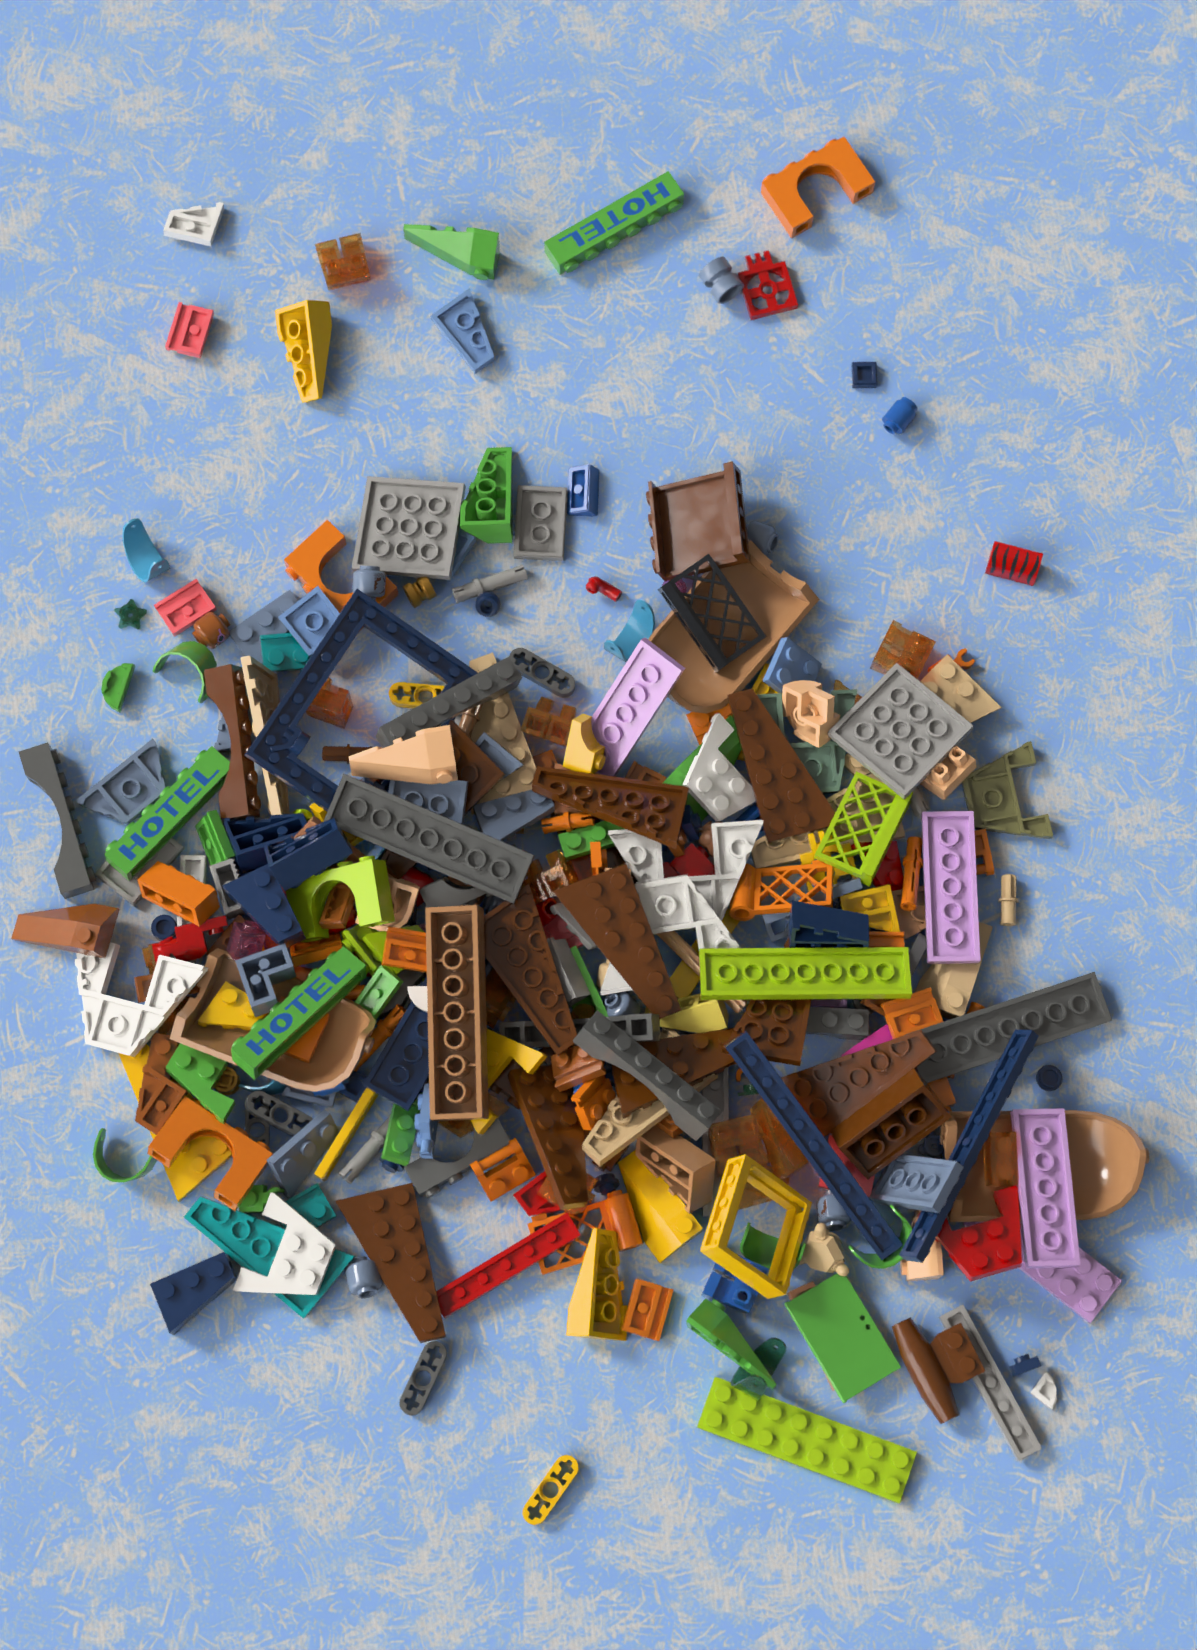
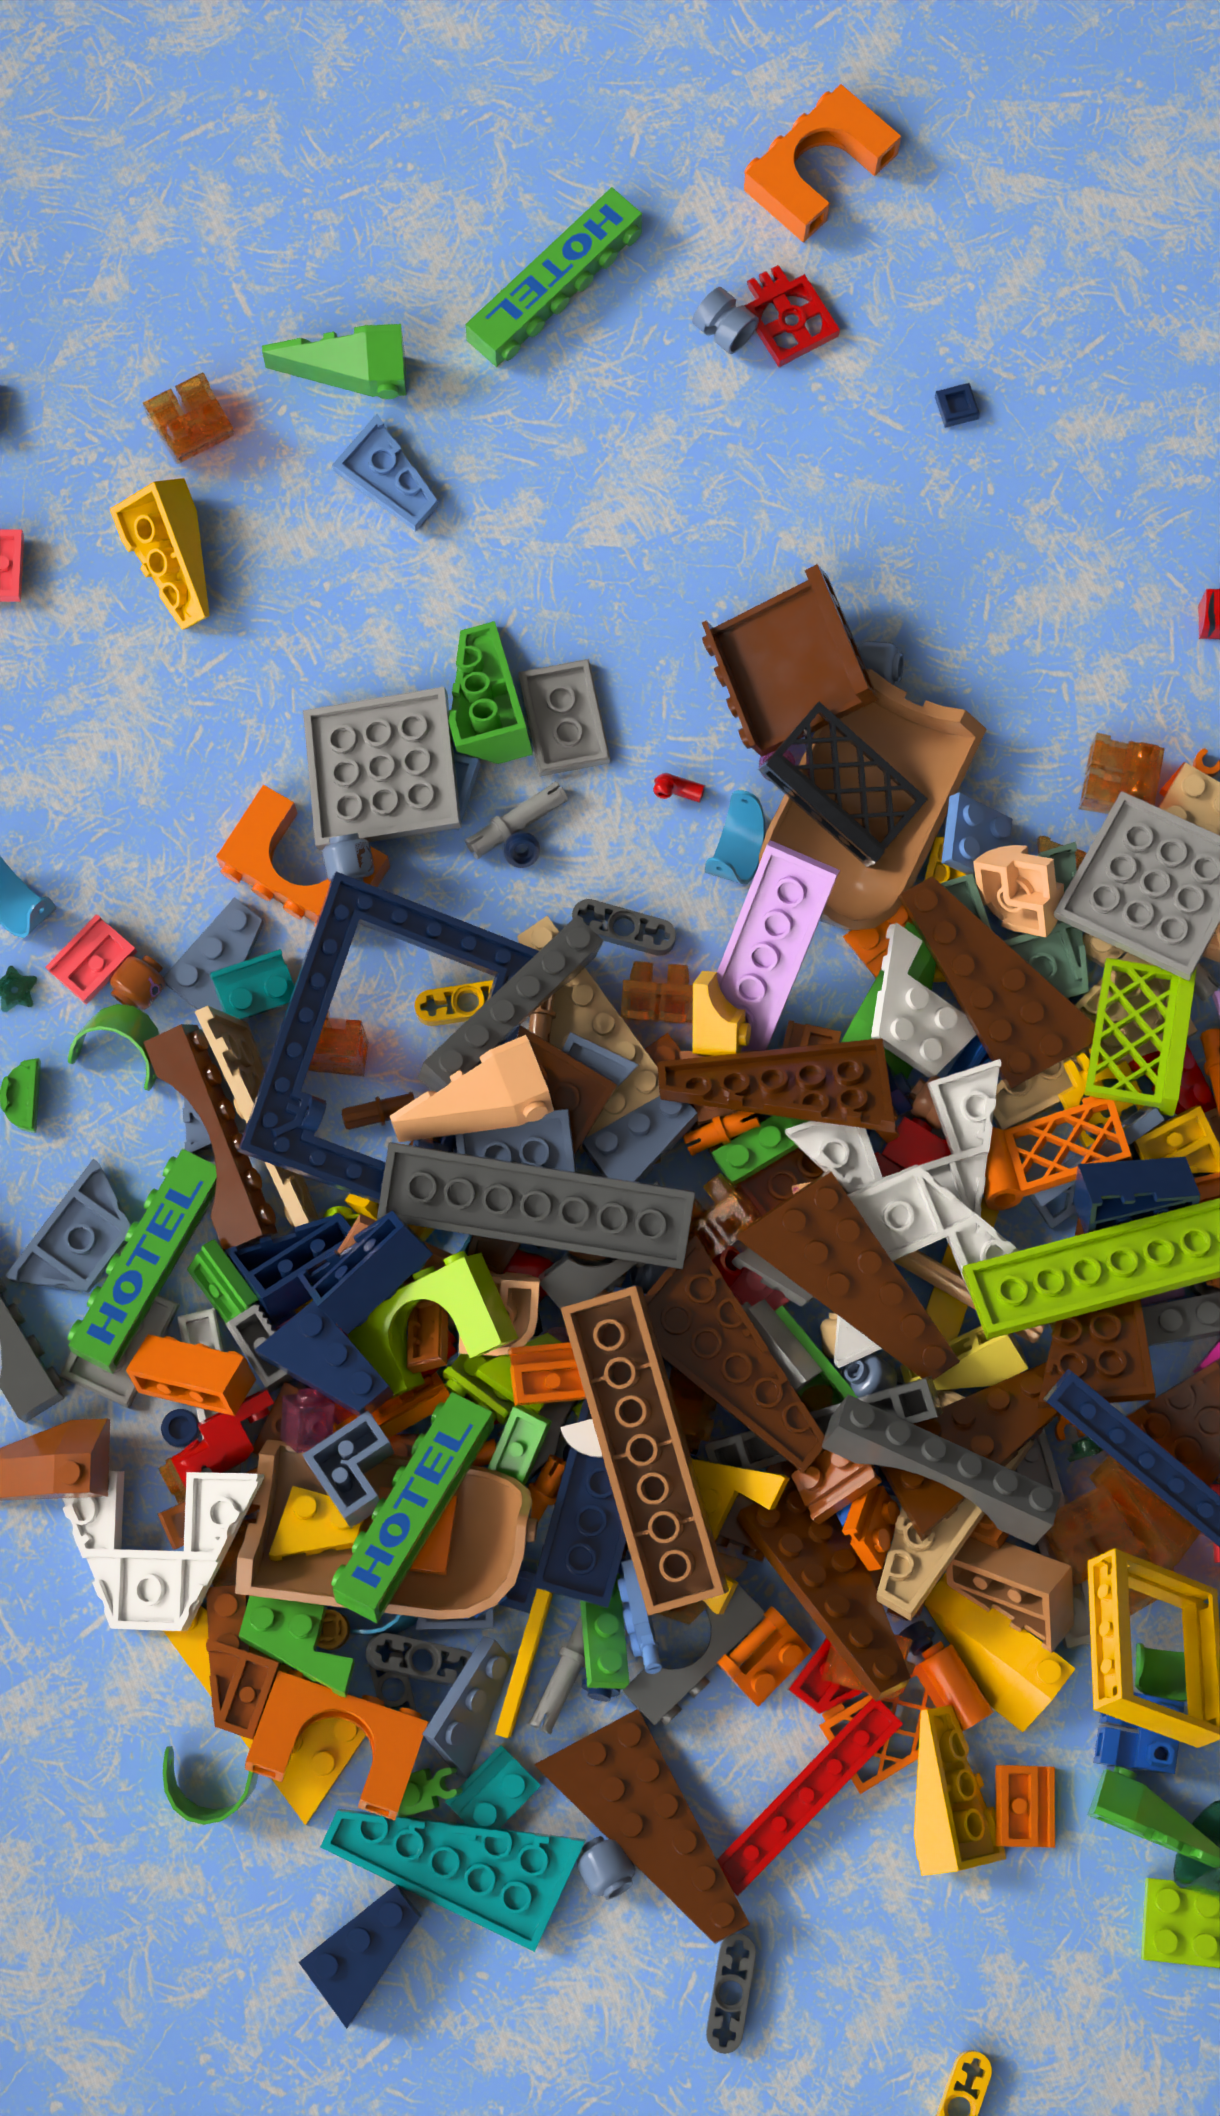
camera: 15 degrees left, 0 degrees up
(299, 1259) = (507, 1868): white wing -> none
(310, 619) = (278, 933): medium blue plate -> none
(414, 594) = (420, 855): pearl gold wheel -> none
(583, 491) = (611, 658): blue slope -> none
(598, 858) = (781, 1174): orange plate -> none
(899, 415) = (1023, 449): blue brick -> none

